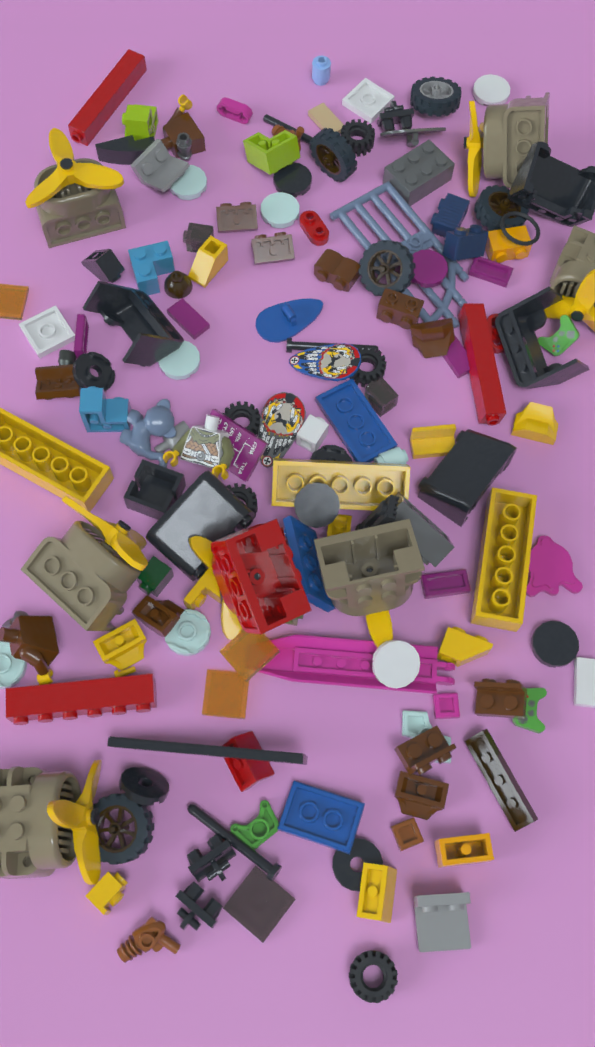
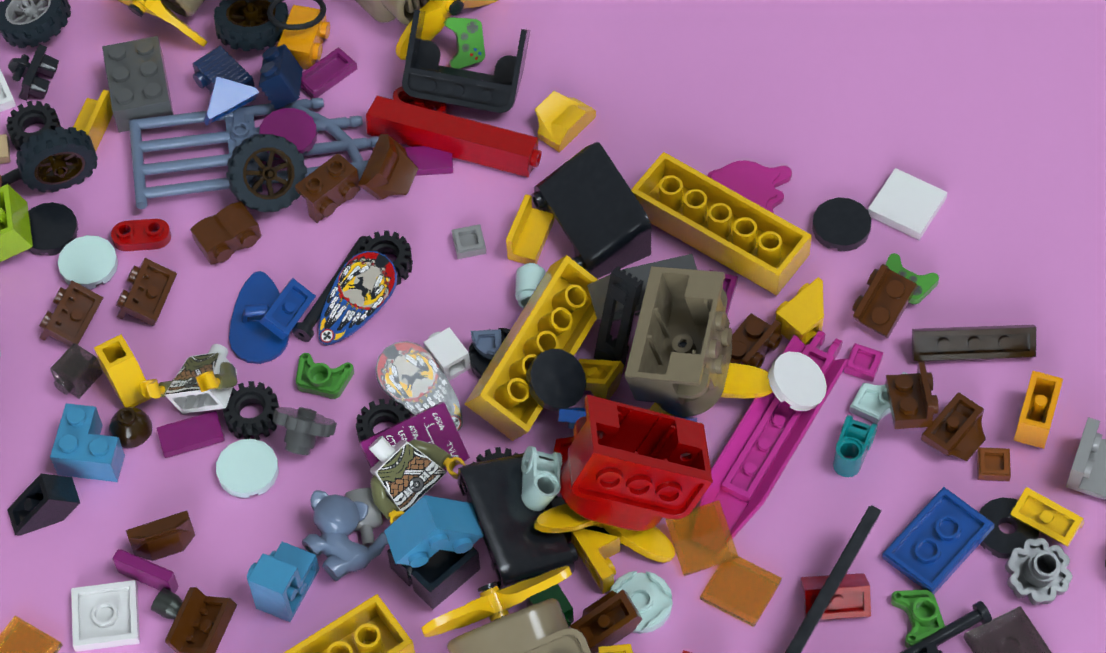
camera: 60 degrees left, 10 degrees down
(95, 361) = (226, 576): black tile -> none
(109, 335) = (162, 536): none -> reddish brown slope
(139, 317) = (170, 487): black windscreen -> none
(158, 475) = (430, 527): none -> dark azure brick
(216, 374) = (302, 428): none -> dark grey plant
(218, 332) = (247, 396): none -> black tyre
(219, 305) = (200, 384): none -> torso
(231, 521) = (540, 478): none -> light aqua piece
(261, 371) = (322, 379): none -> bright green piece
(298, 328) = (287, 309): none -> blue plate
(328, 902) = (1038, 571): none -> plant
(333, 452) = (487, 342): none -> sand blue tile
(355, 421) = (456, 302): blue plate -> none
(374, 165) = (95, 117): none -> yellow panel
(377, 725) = (854, 441): none -> teal piece
(381, 396) = (436, 260): clear smoke brick -> none
(408, 410) = (468, 241): none -> light grey tile
(412, 133) = (71, 63): dark grey shield -> none
(419, 621) = (754, 341): none -> reddish brown bracket
(427, 220) = (228, 97): none -> slope

